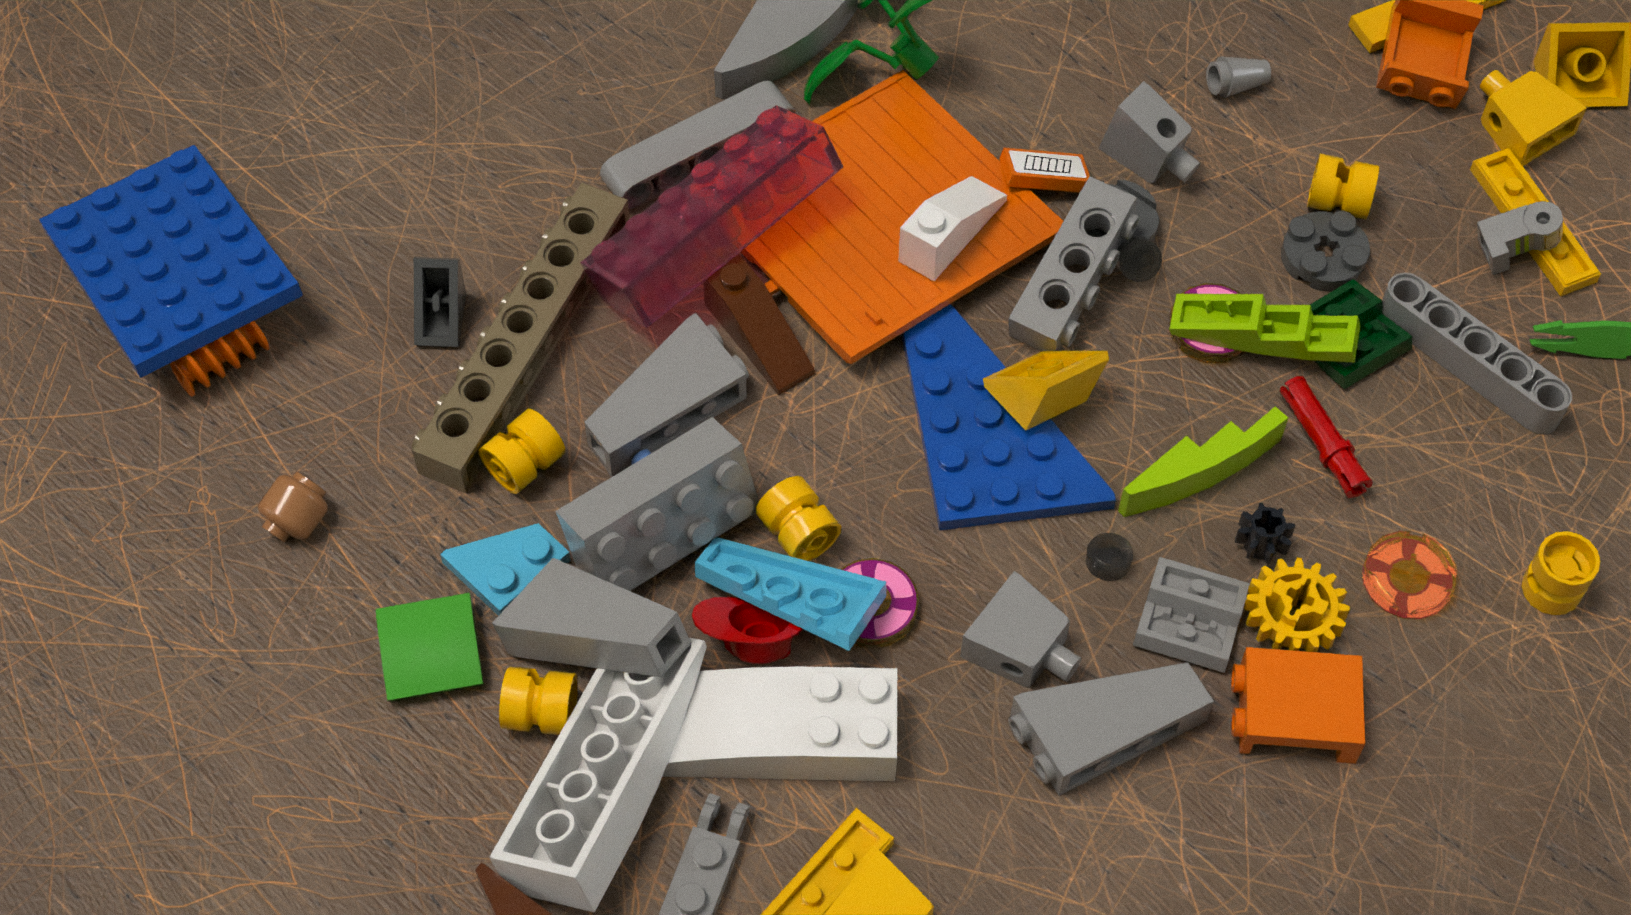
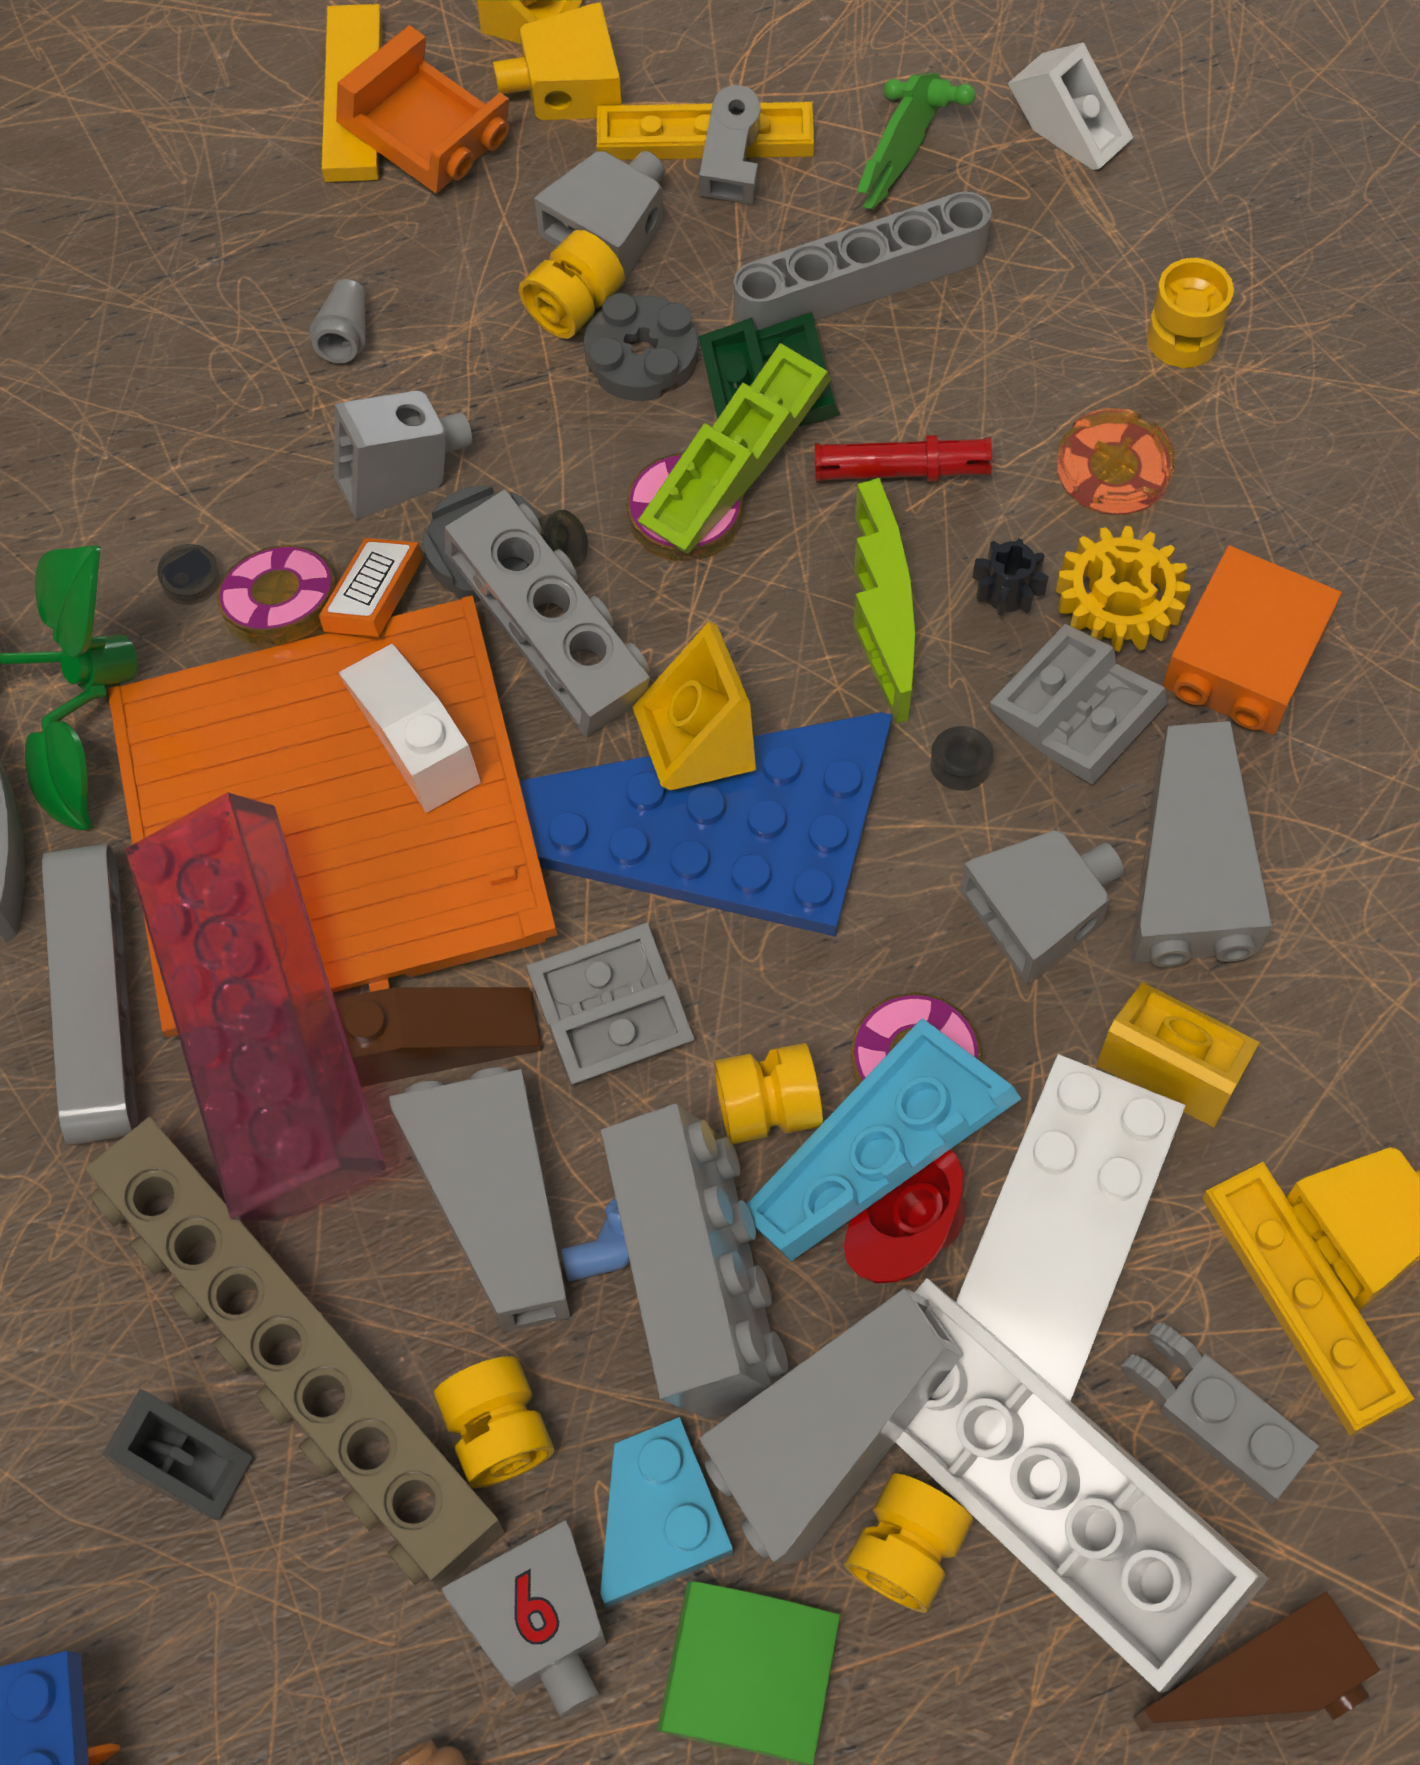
camera: 65 degrees left, 5 degrees up
(417, 519) = (534, 1617): none -> light grey torso
(824, 416) = (609, 1004): none -> light grey slope
(952, 757) = (1176, 1052): none -> yellow slope
(1006, 76) = (188, 574): none -> clear smoke tile
(1013, 122) = (276, 594): none -> tile
(1420, 185) = (609, 200): none -> light grey torso

